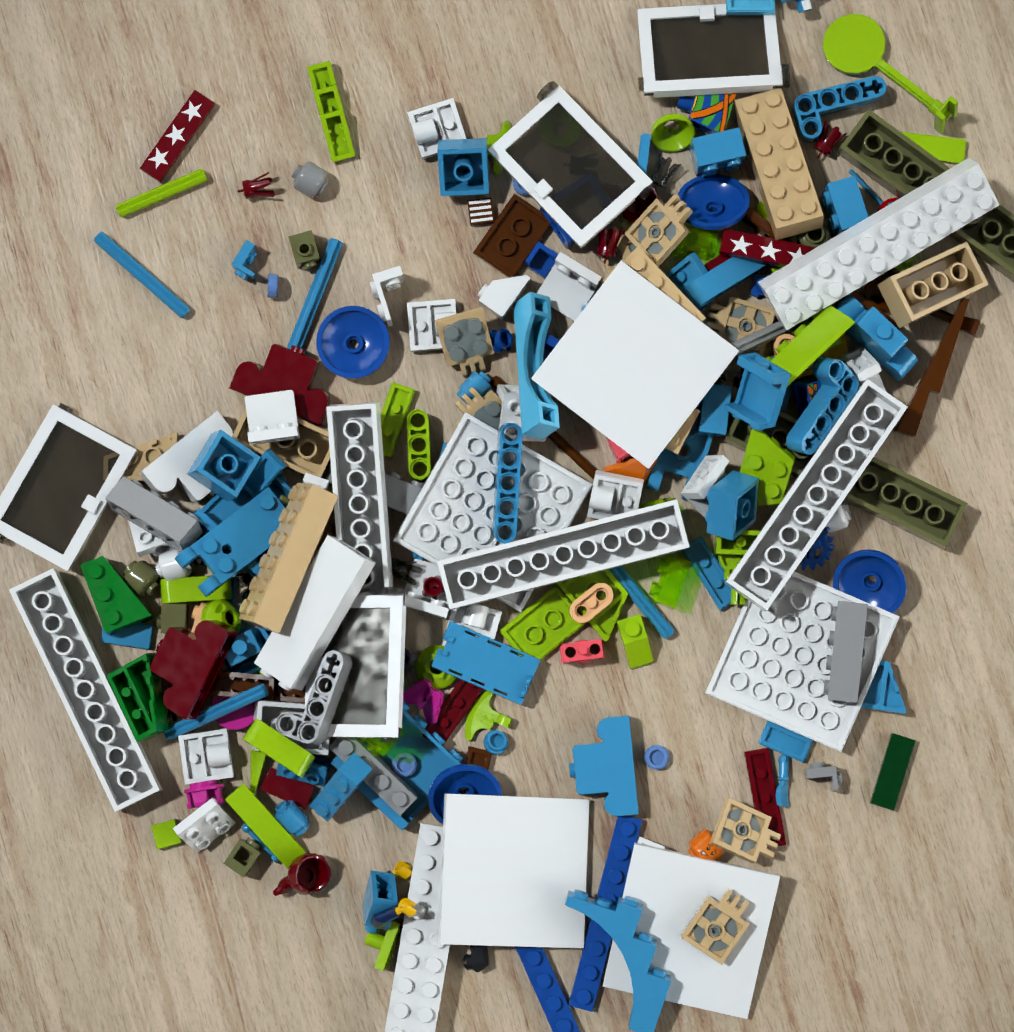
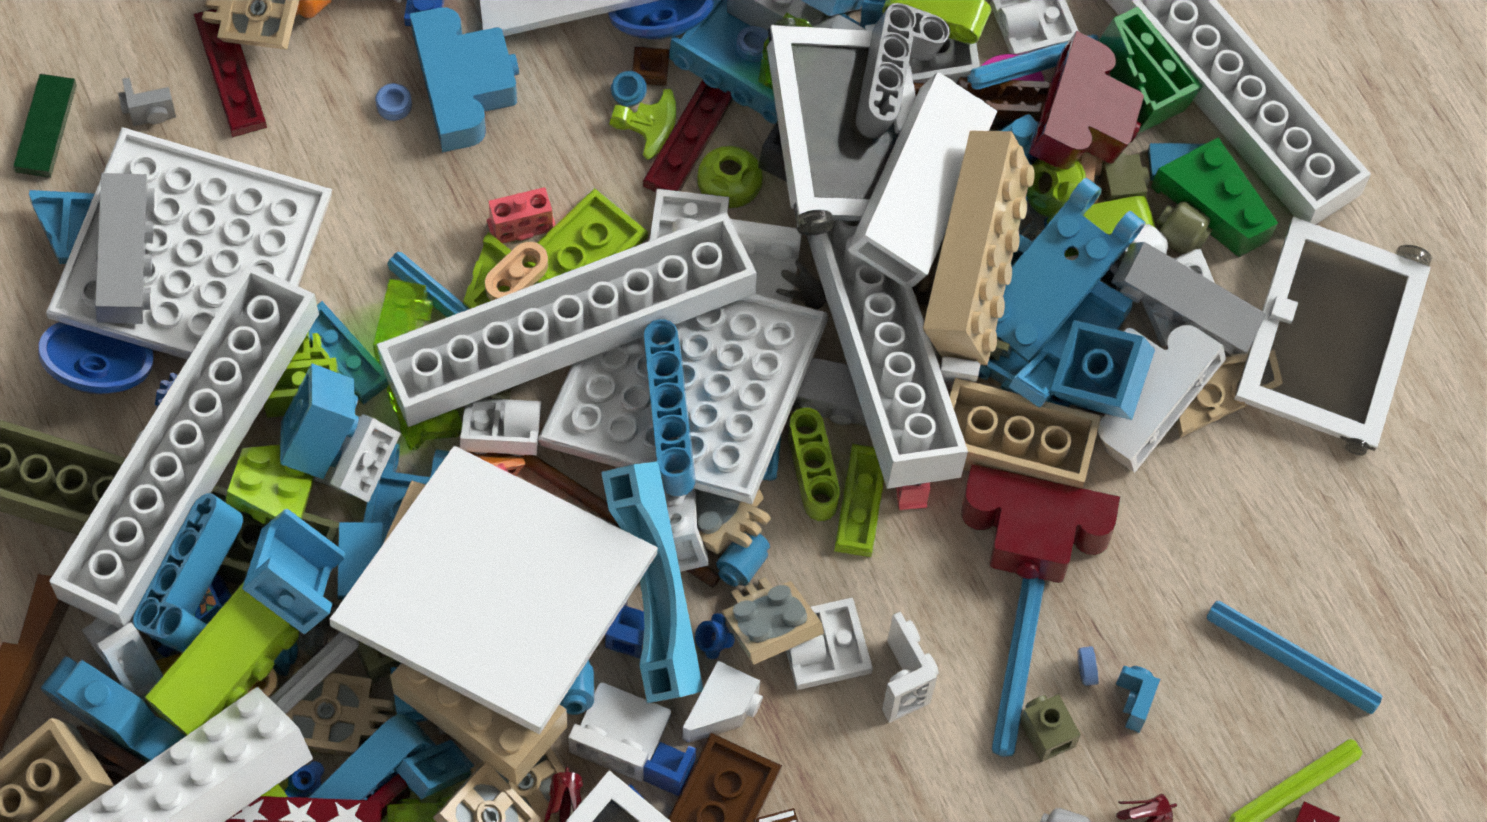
camera: 165 degrees right, 20 degrees down
(271, 417) = (1044, 443): white bracket -> none
(348, 325) = (952, 571): blue dish -> none
(418, 695) = (737, 128): dark pink animal -> none
(433, 587) = (760, 258): dark red piece -> none
(486, 663) = (660, 175): dark azure piece -> none
(635, 641) = (447, 245): lime slope -> none
(782, 789) = (205, 78): dark azure piece -> none
(785, 741) = (209, 139): dark azure tile -> none

